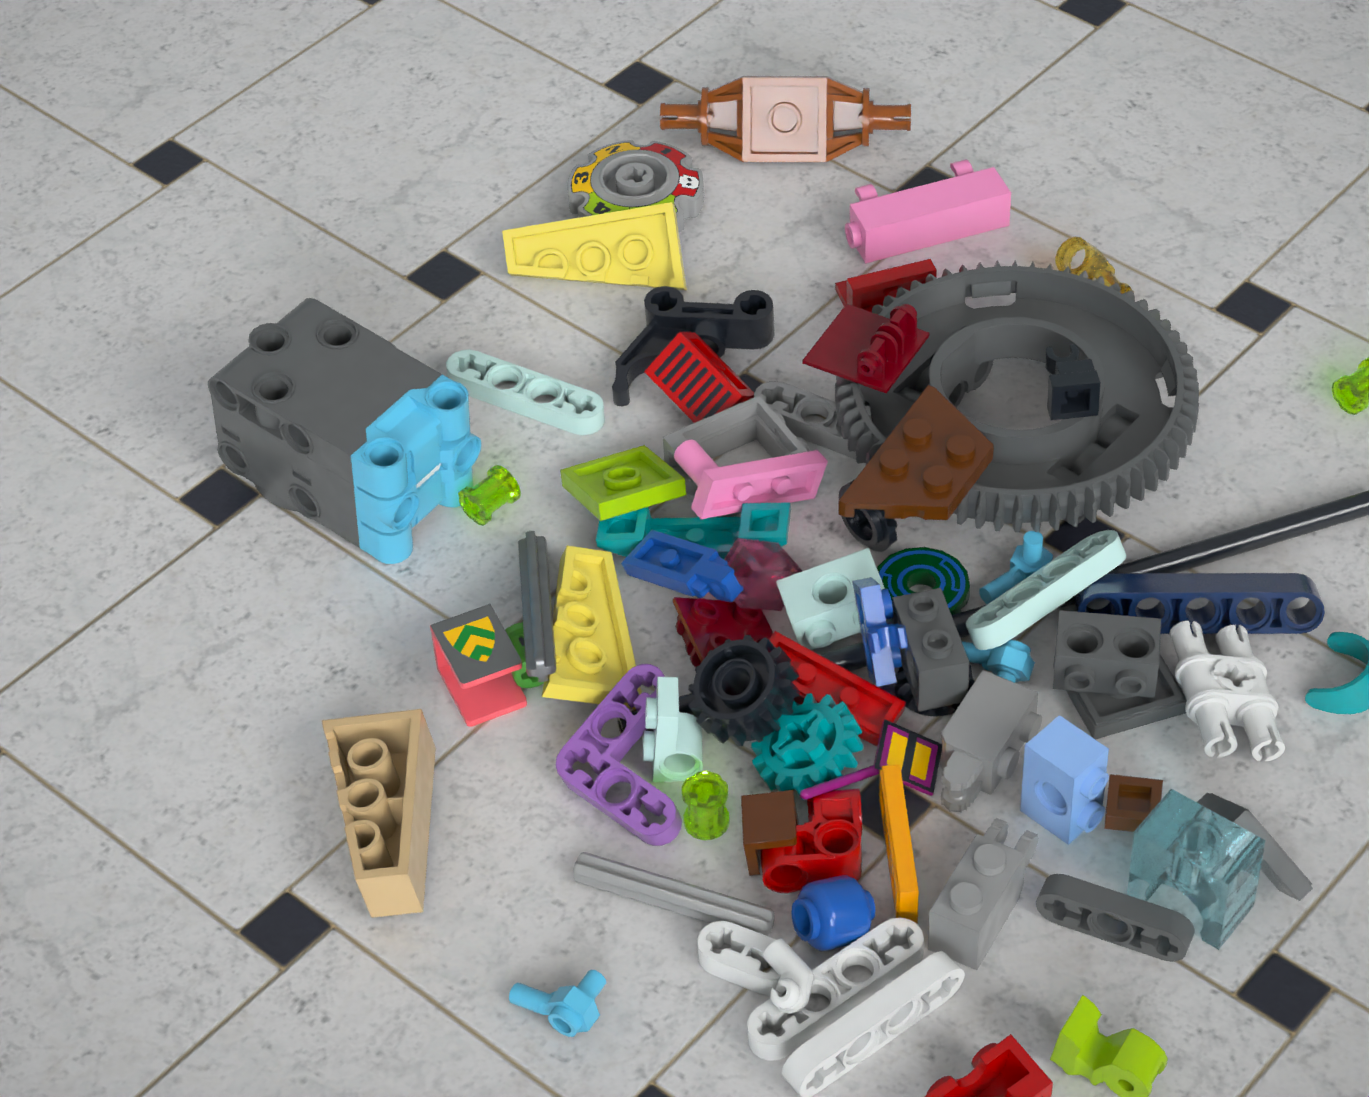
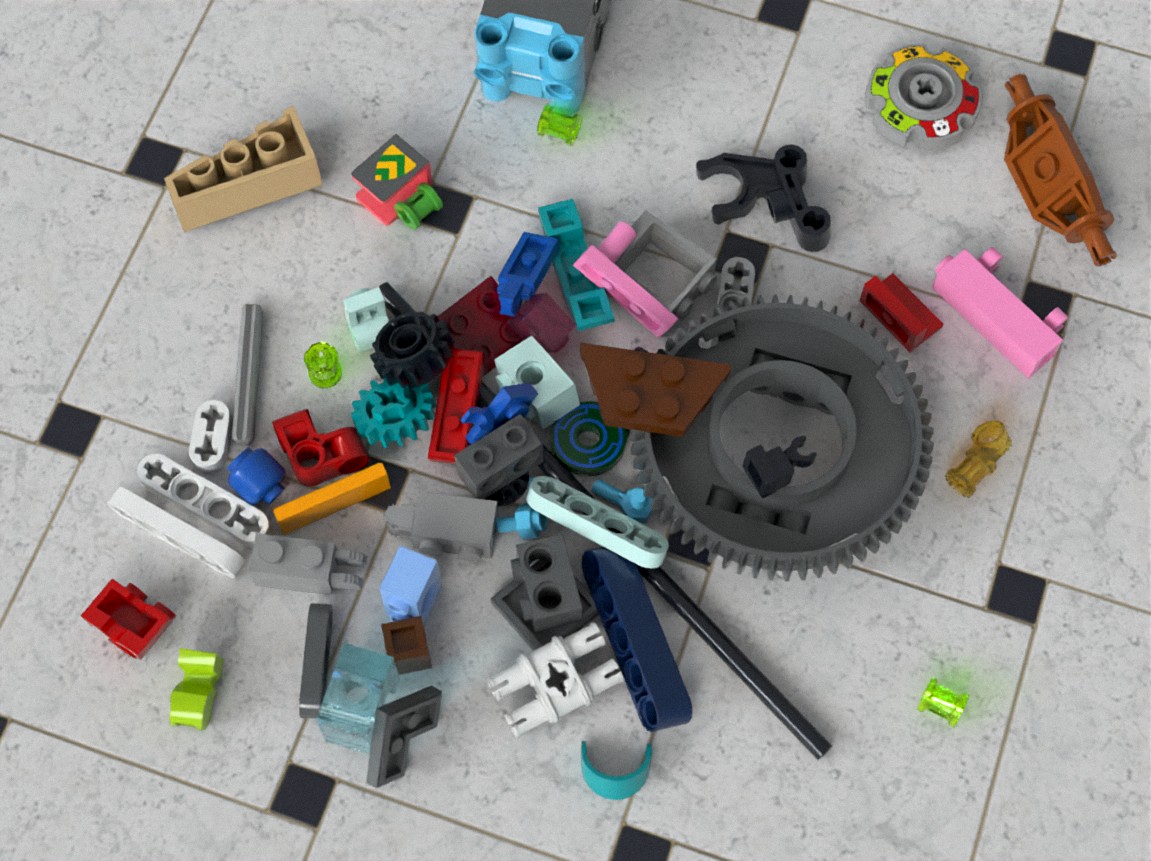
camera: 65 degrees right, 20 degrees up
(536, 607) = (451, 192): flat silver axle -> none
(569, 1008) = (131, 346): medium azure piece -> none
(572, 409) = (676, 107): light aqua beam -> none
(588, 629) = (441, 239): light yellow wing -> none
(605, 758) = (350, 276): medium lavender beam -> none
(607, 248) = (844, 100): light yellow wing -> none
(623, 482) = (599, 201): lime tile -> none
(697, 378) = (728, 215): red panel -> none
(767, 823) = (311, 407): reddish brown panel -> none
(794, 980) = (184, 470): white arm -> none
(868, 346) = (759, 309): dark red hinge -> none
(915, 753) = (410, 475): piece -> none

